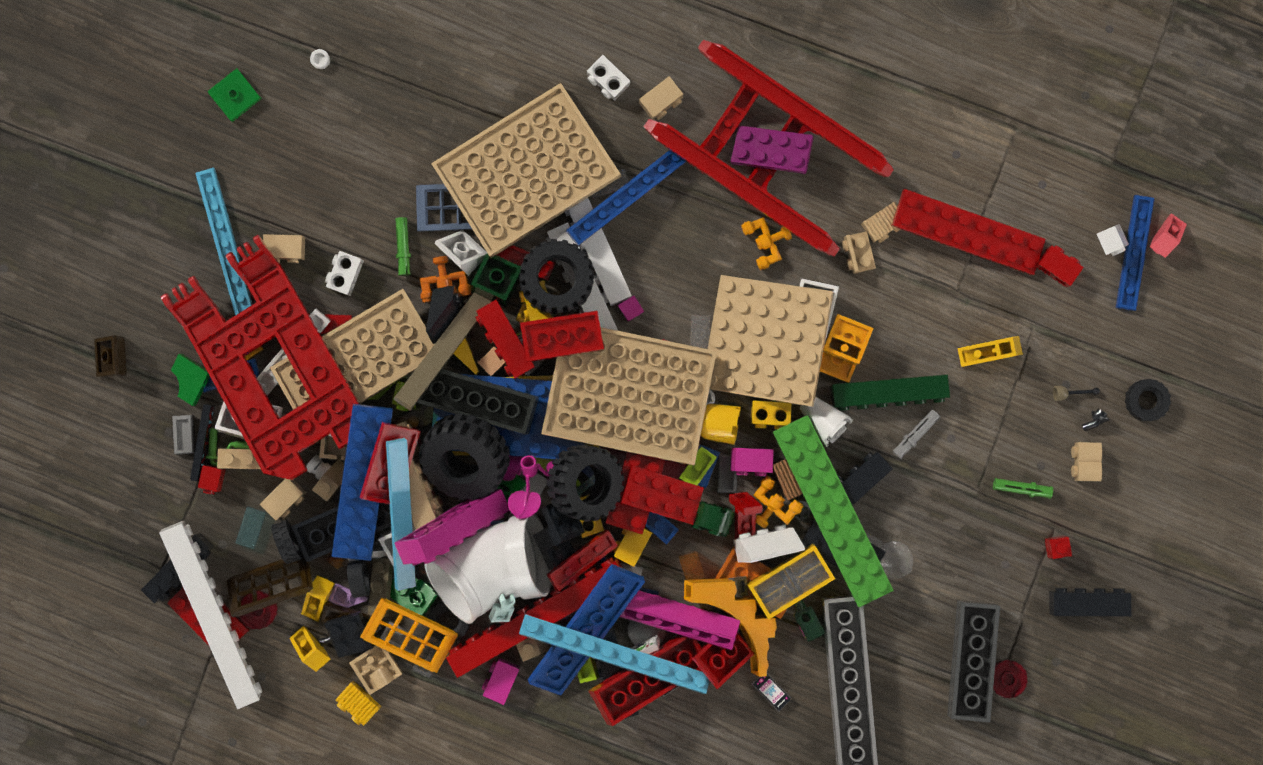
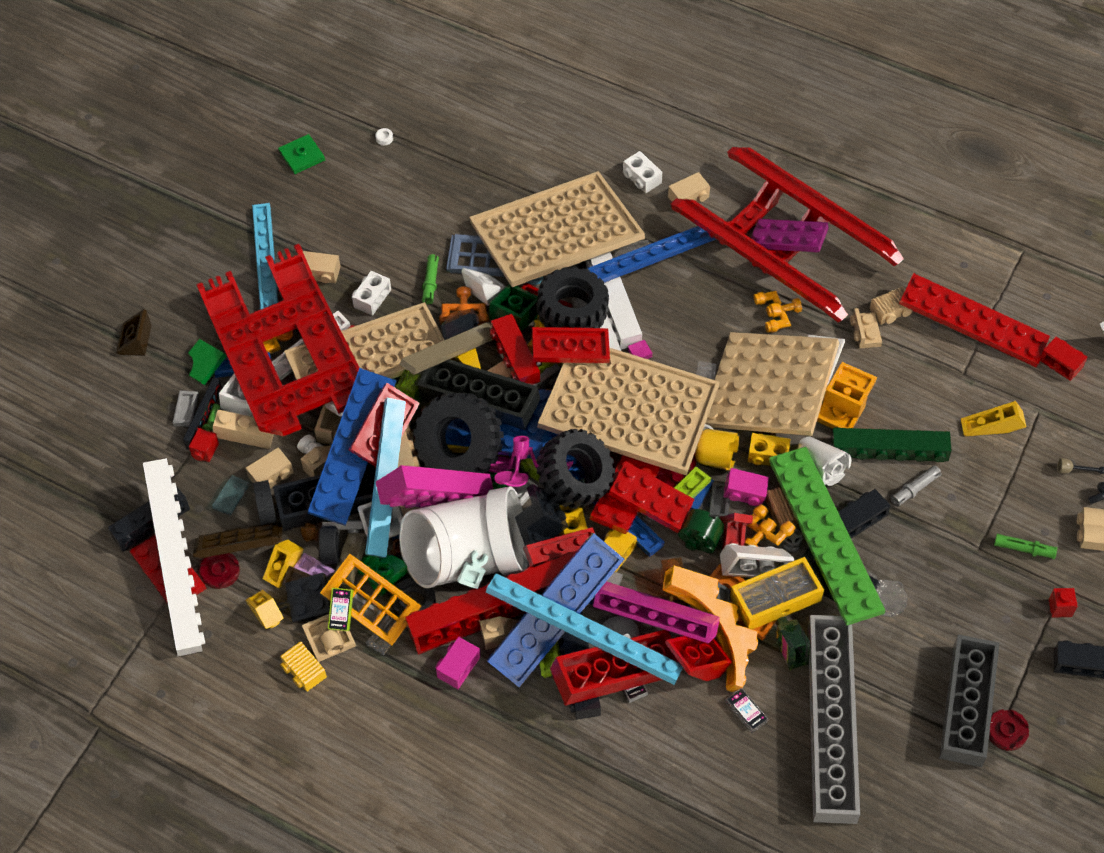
camera: 10 degrees right, 30 degrees down
(383, 652) = (340, 609): none -> tile

